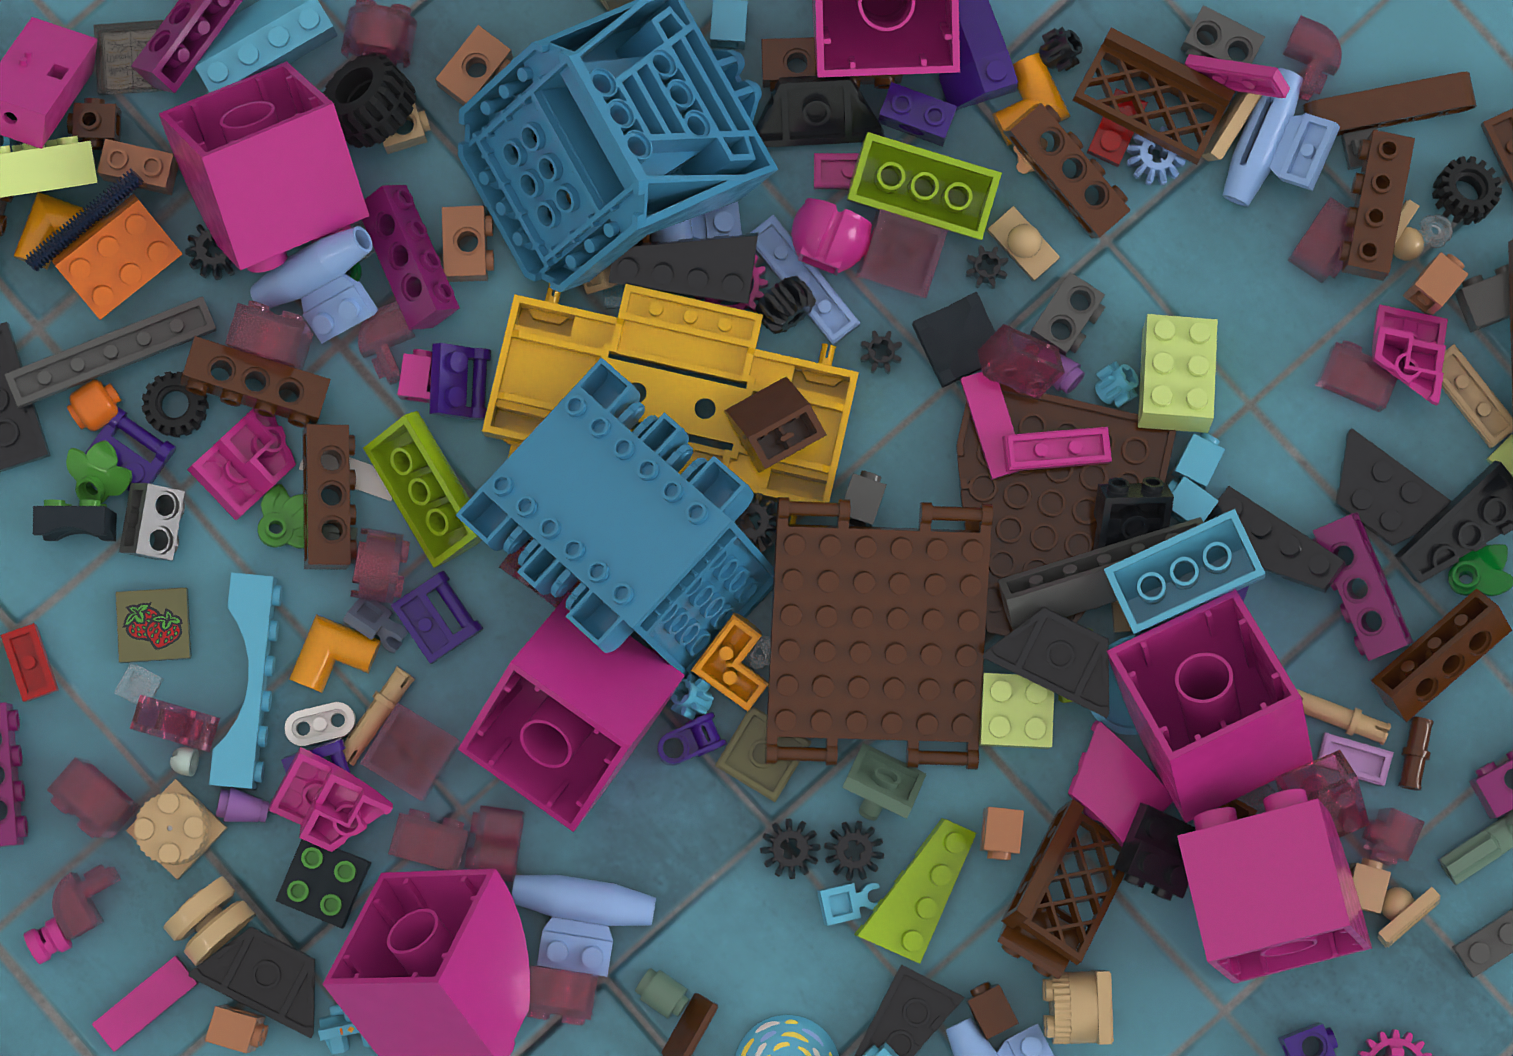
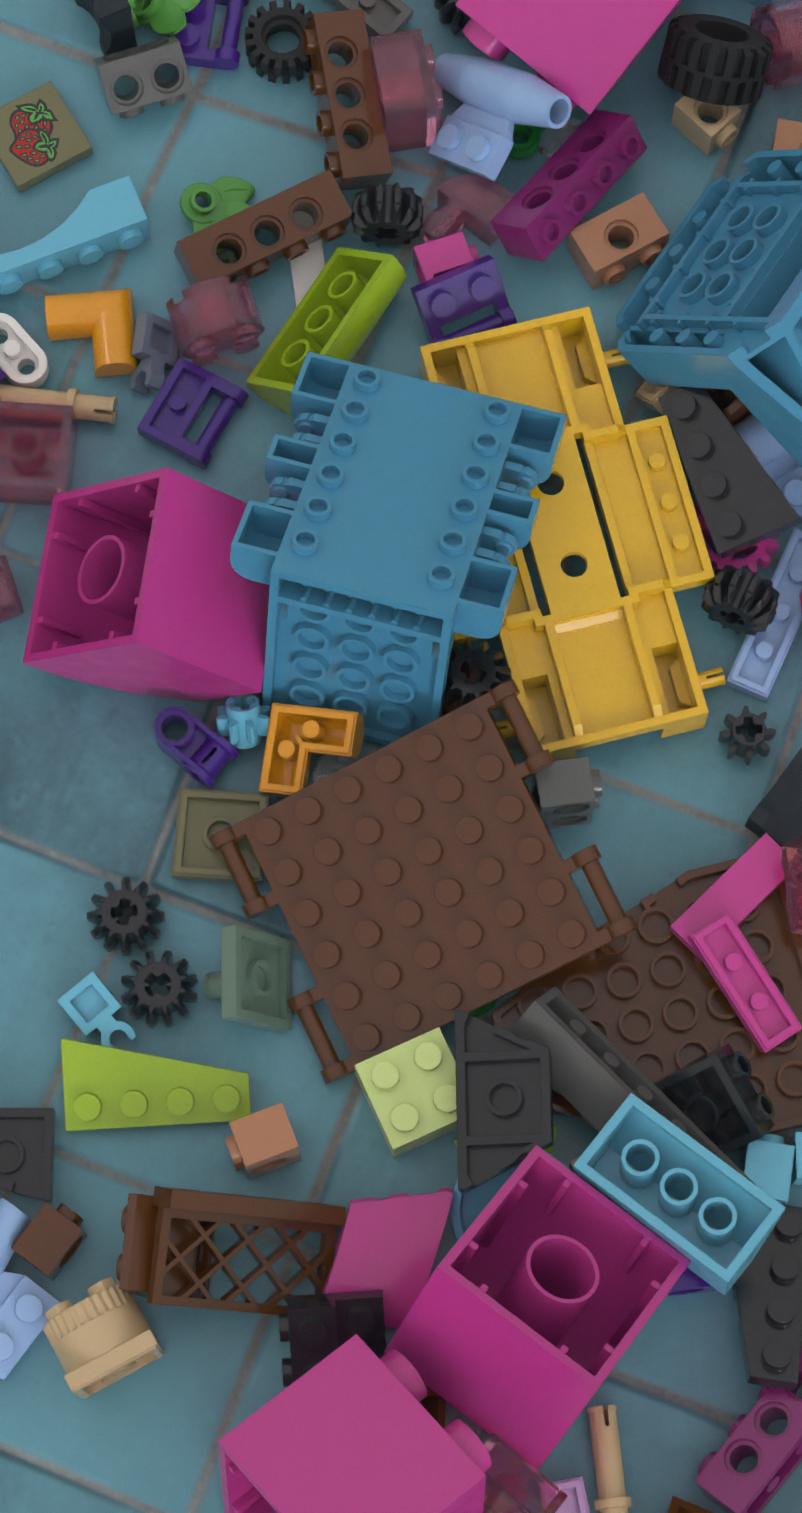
camera: 65 degrees right, 10 degrees down
(244, 463) = (257, 139): dark pink slope -> none
(360, 399) = (387, 214): none -> black gear
(775, 423) = (595, 642): reddish brown slope -> none

